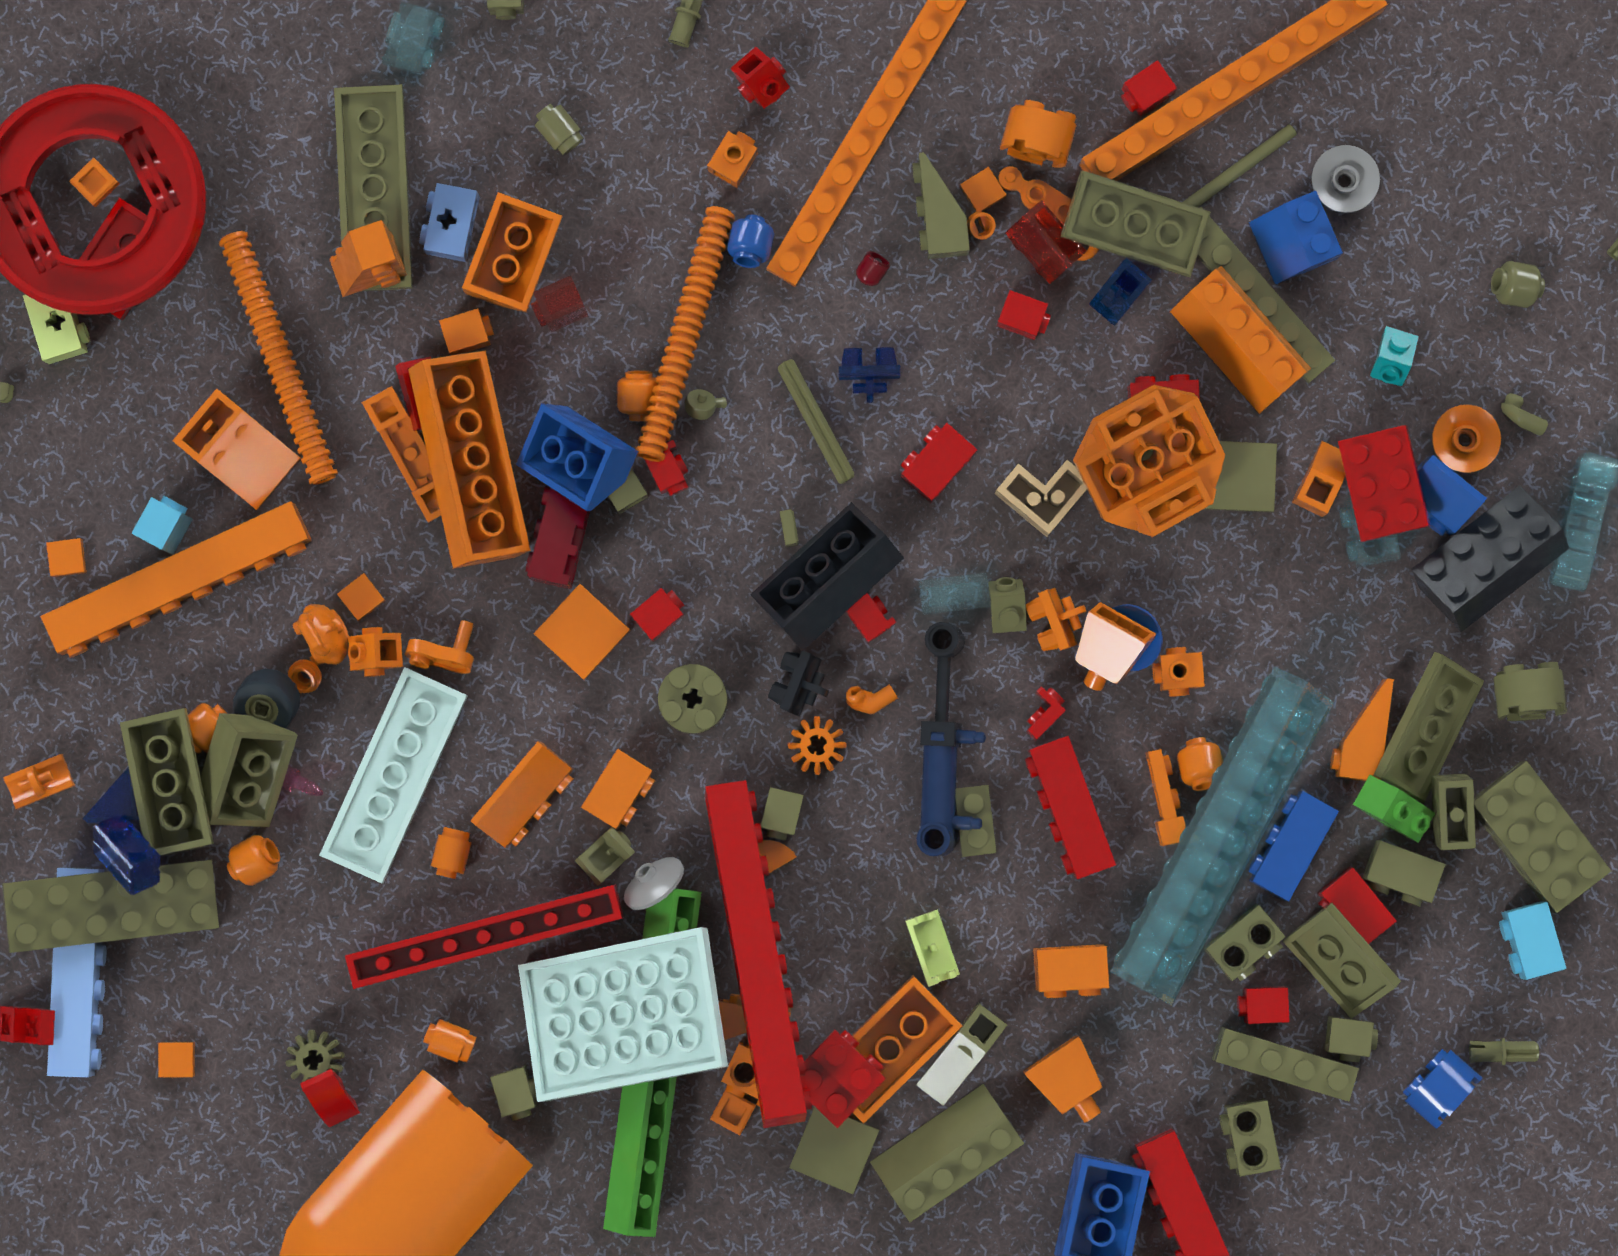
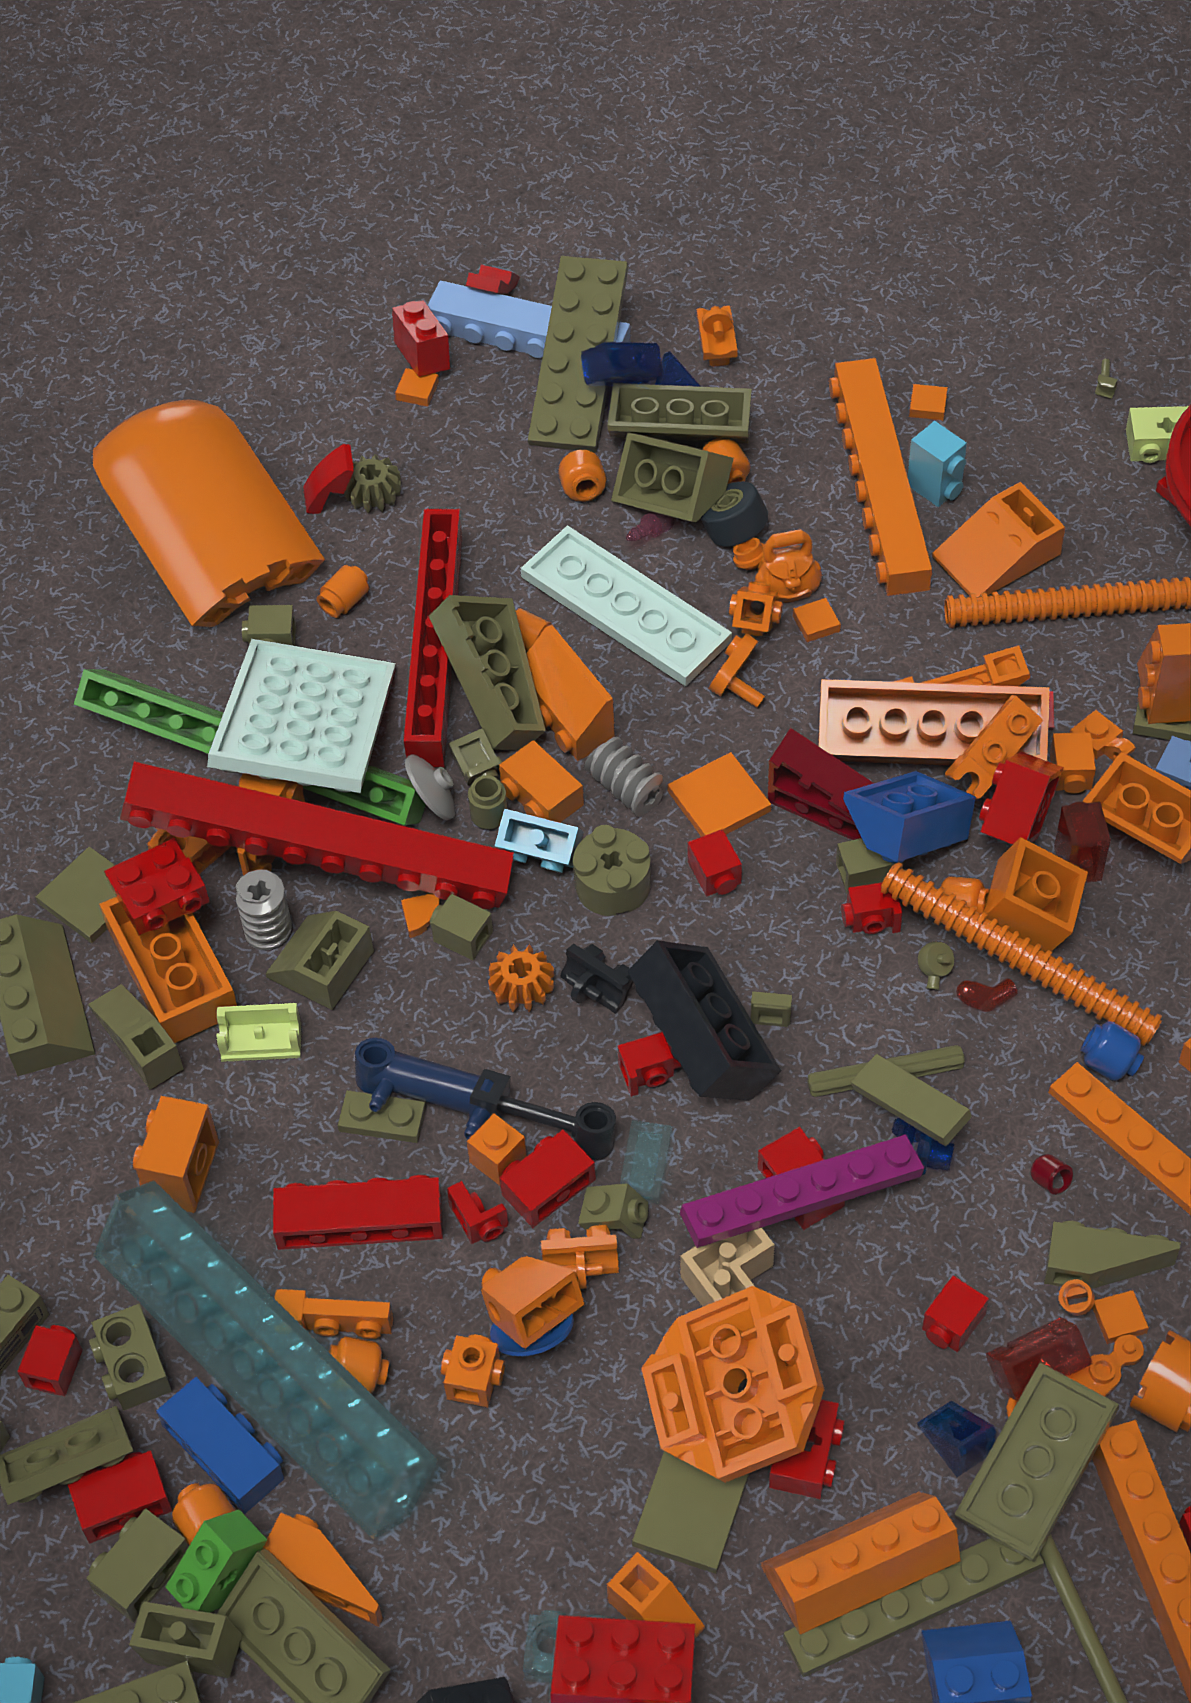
camera: 105 degrees right, 30 degrees down
(125, 1070) = (421, 338): none -> red brick
(424, 315) = (1105, 736): none -> orange plate
(491, 397) = (995, 744): none -> orange plate
(519, 865) = (492, 666): none -> olive wedge
(536, 363) = (1020, 798): none -> red brick
(588, 717) = (625, 776): none -> light grey piece
(624, 333) = (1036, 894): none -> orange brick
(642, 828) = (487, 802): none -> olive brick
(680, 770) = (538, 839): none -> medium azure brick
(723, 354) = (986, 997): none -> clear red arm
(813, 992) = (263, 909): none -> light grey piece
(846, 923) = (323, 957): none -> olive slope
(853, 389) = (911, 1099): none -> olive tile
(869, 702) = (553, 1043): orange arm -> none
(965, 453) = (801, 1191): none -> magenta plate
(985, 713) = (495, 1147): none -> orange brick
(996, 666) = (547, 1177): none -> red brick
(1067, 1079) = (60, 1129): orange torso -> none
(1353, 835) = (197, 1505): none -> orange head

